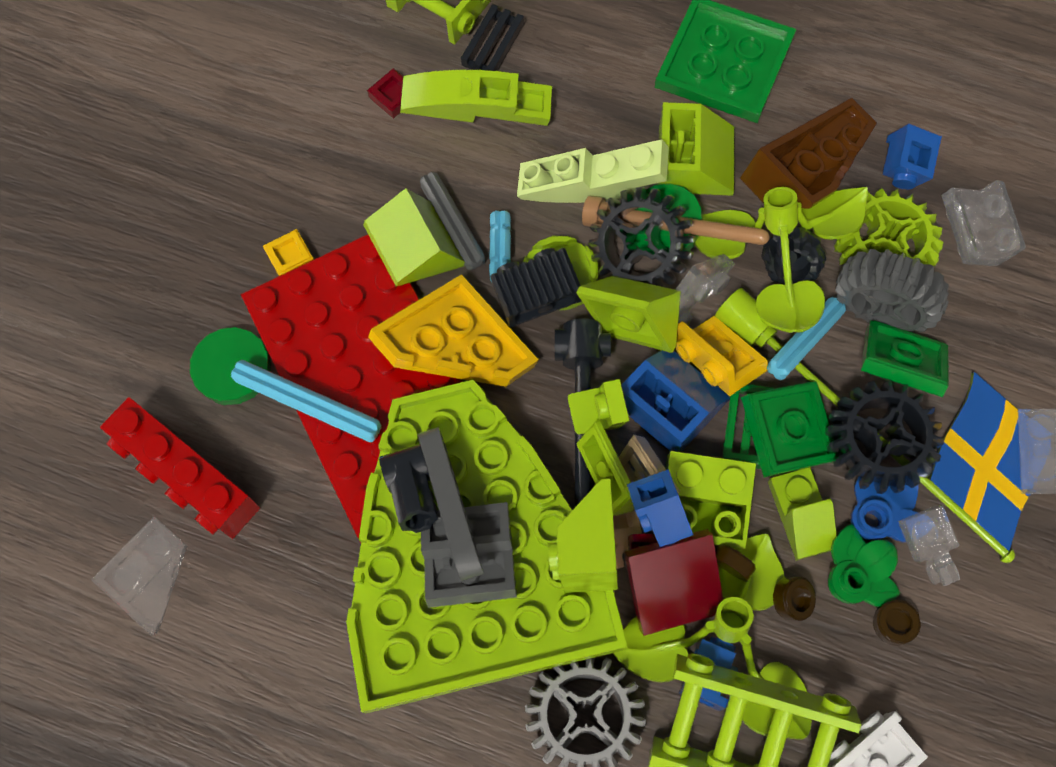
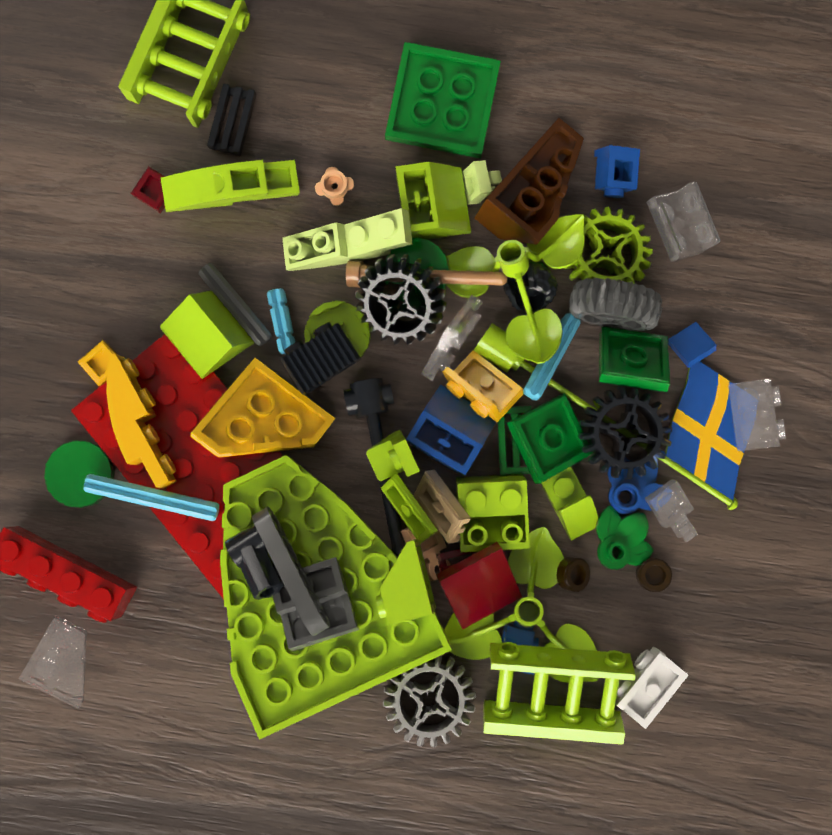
camera: 15 degrees left, 15 degrees up
(306, 310) = (129, 410): none -> yellow slope
(589, 112) = (333, 176): none -> light nougat plate
(634, 311) = (405, 363): lime slope -> none
(660, 508) = (457, 539): blue brick -> none
(734, 562) = (522, 560): dark brown tile -> none
(749, 140) = (479, 182): none -> yellowish green tile
(977, 359) = (692, 344): none -> blue tile

